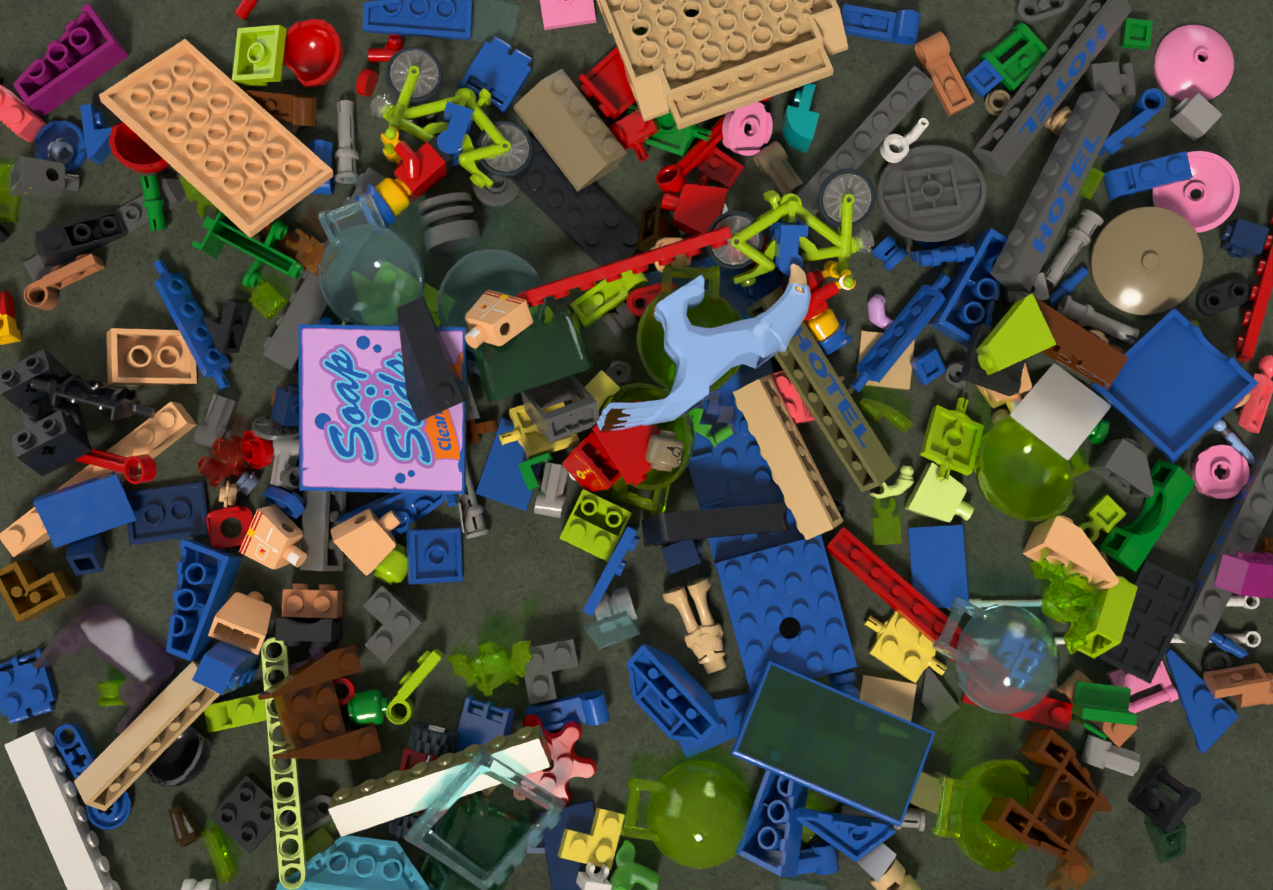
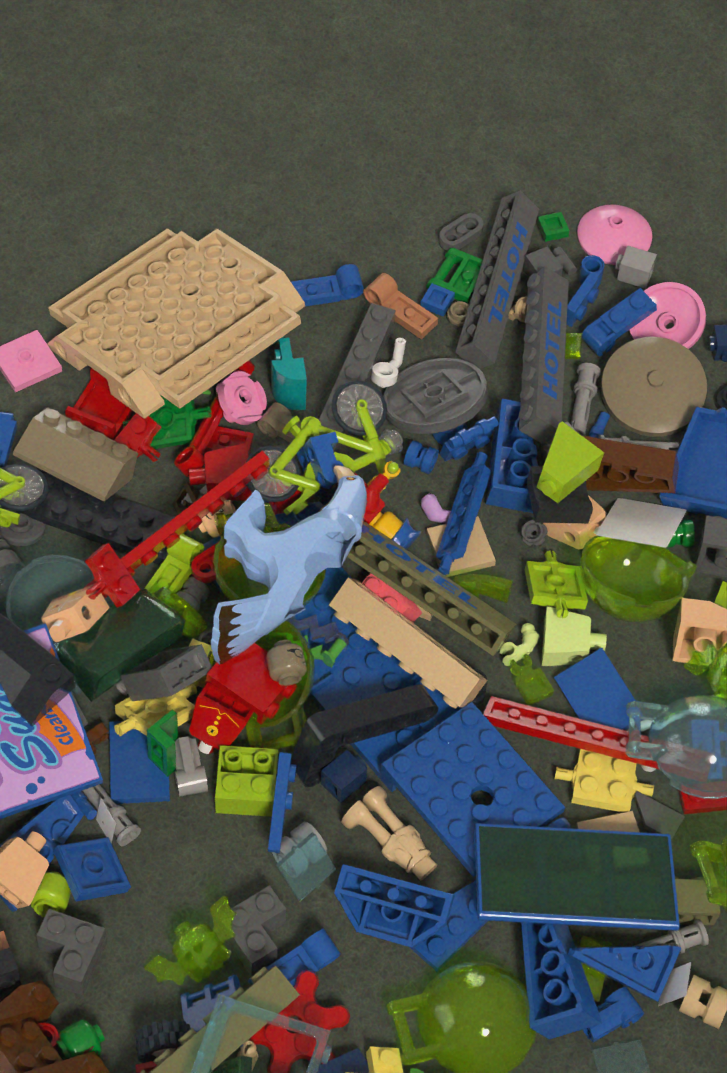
camera: 30 degrees left, 30 degrees down
(410, 683) = (115, 1004): lime plate -> none
(540, 300) = (110, 576): none -> red plate
(601, 339) = (194, 622): none -> clear neon green slope
(927, 366) = (502, 535): blue plate -> none

